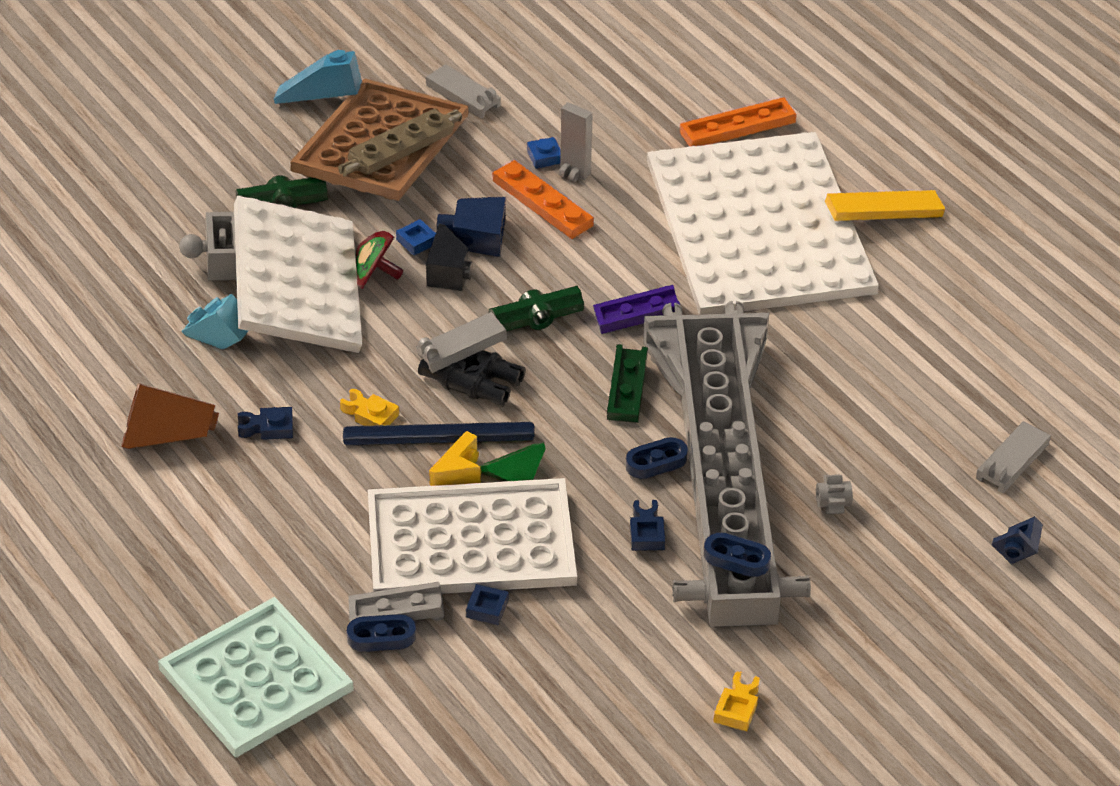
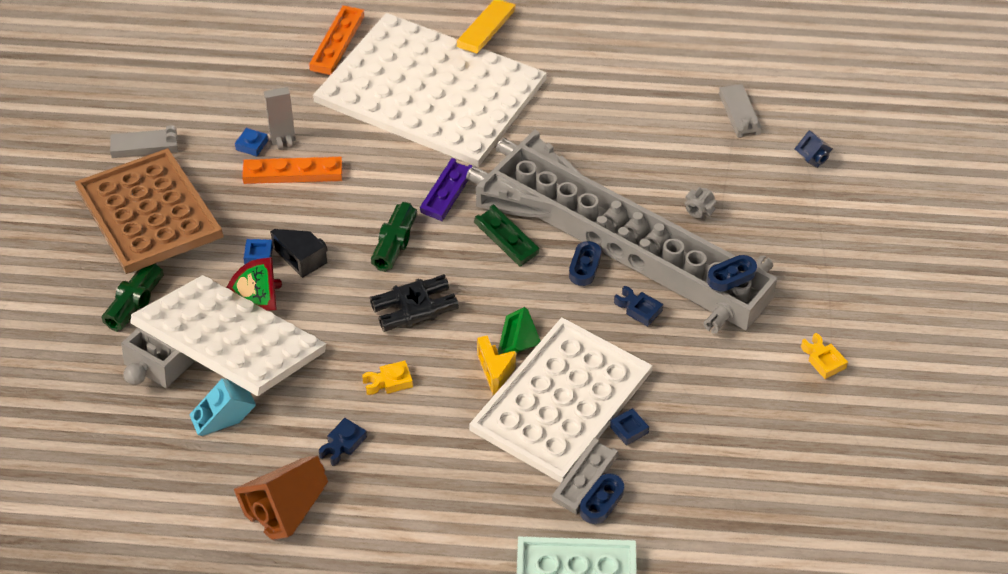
camera: 50 degrees left, 5 degrees up
(329, 77) = (54, 200): dark azure slope -> none
(399, 142) = (174, 200): dark tan plate -> none
(437, 433) = (447, 357): dark blue axle -> none
(461, 342) = (395, 288): light grey hinge -> none
(478, 224) = (285, 211): dark blue torso -> none

